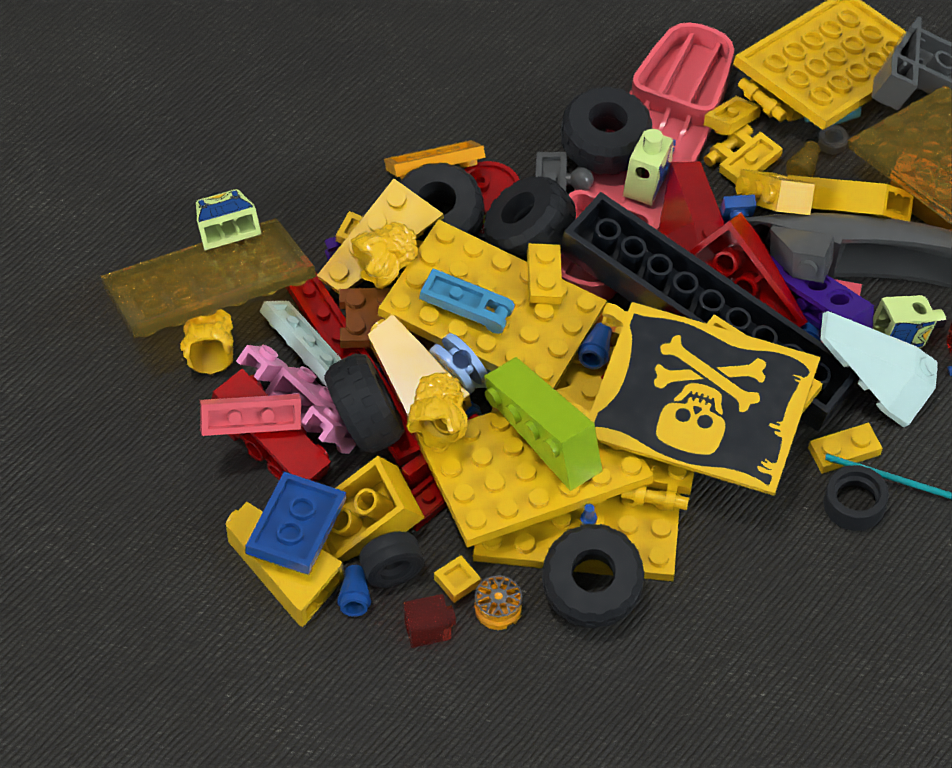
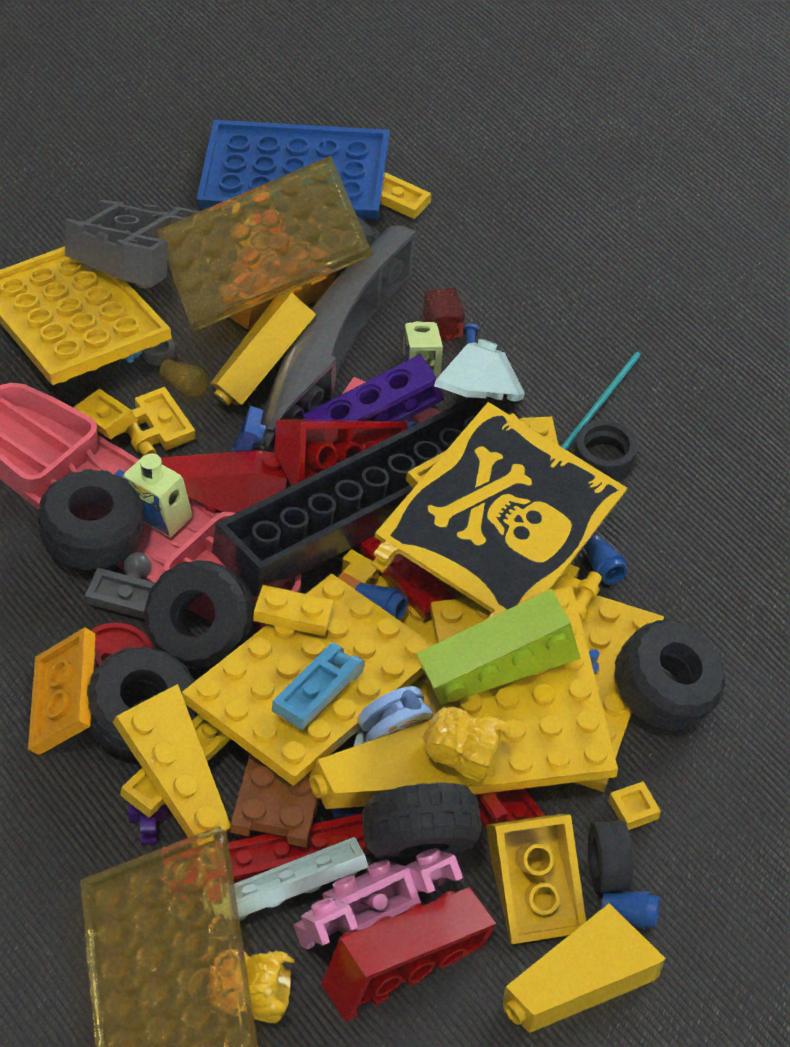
camera: 80 degrees left, 5 degrees down
(226, 218) = (70, 930): yellowish green torso -> none
(250, 414) = (414, 941): coral plate -> none
(295, 523) = (558, 934): blue plate -> none
(385, 252) = (221, 752): yellow hair -> none
(428, 620) = (685, 844): clear red brick -> none
(498, 603) = (671, 776): light orange wheel -> none
(719, 518) = (605, 560): none -> blue cone
(771, 104) = (109, 374): yellow plate -> none
(776, 191) = (258, 385): yellow arch -> none
(802, 252) = (333, 391): dark grey slope -> none

